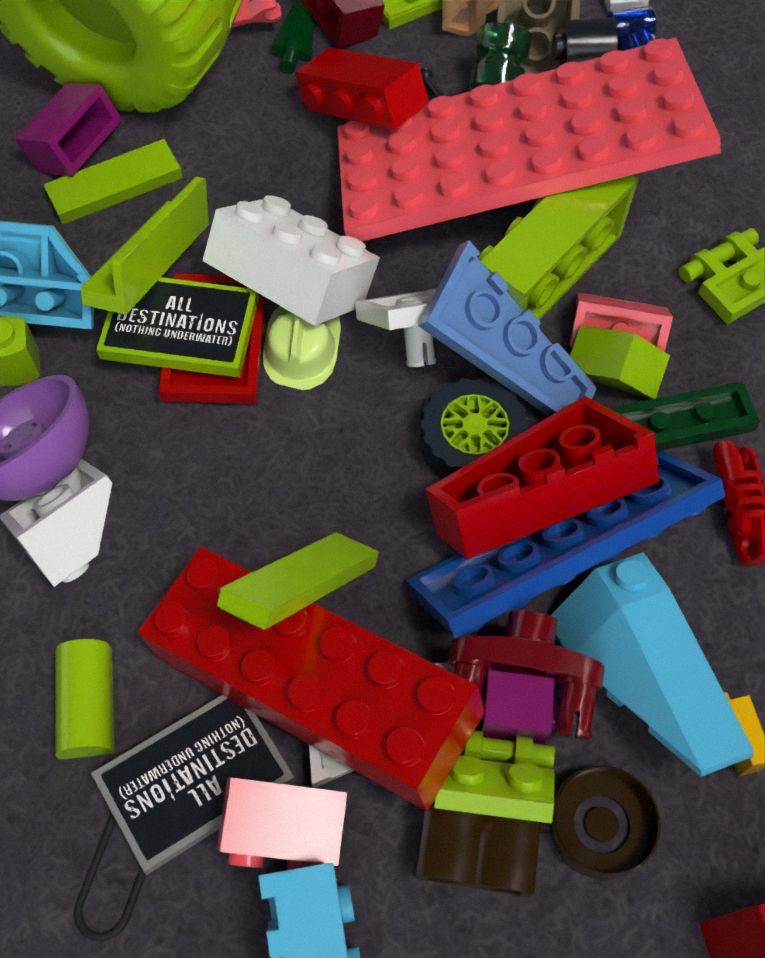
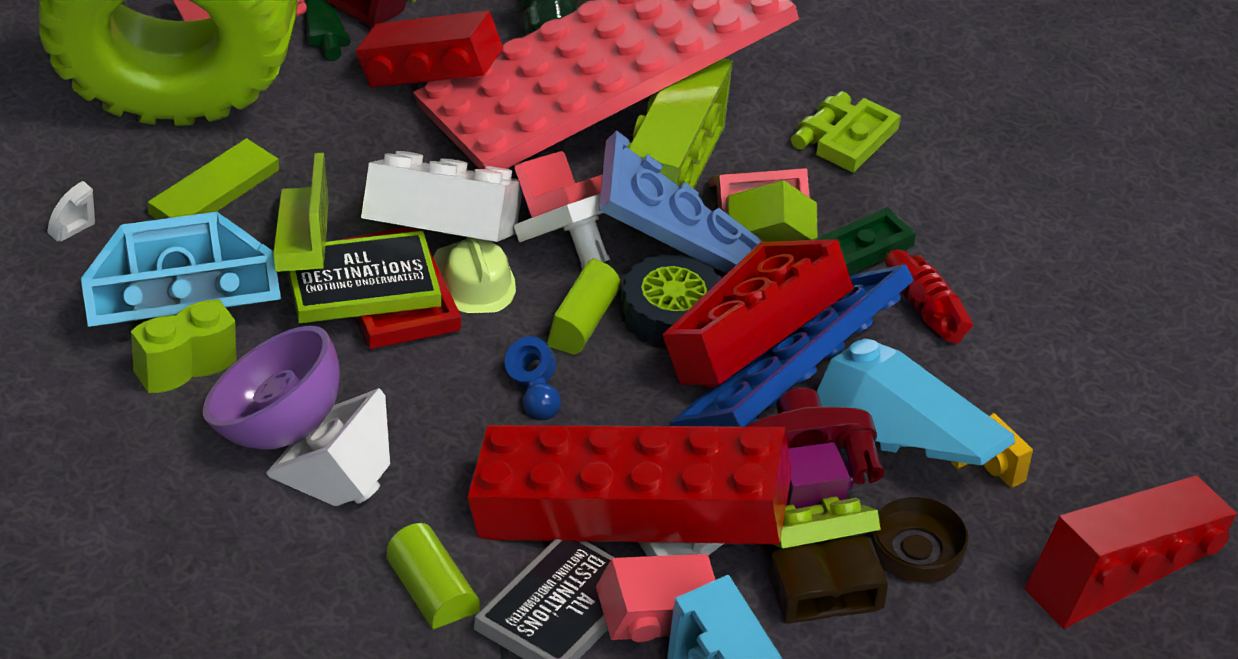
camera: 25 degrees left, 20 degrees down
(69, 129) = (151, 147): magenta brick -> none
(294, 511) = (540, 399): none -> blue plate
(296, 580) = (593, 414): lime tile -> none
(381, 415) = (583, 307): none -> lime brick
(404, 268) = (550, 184): none -> coral panel

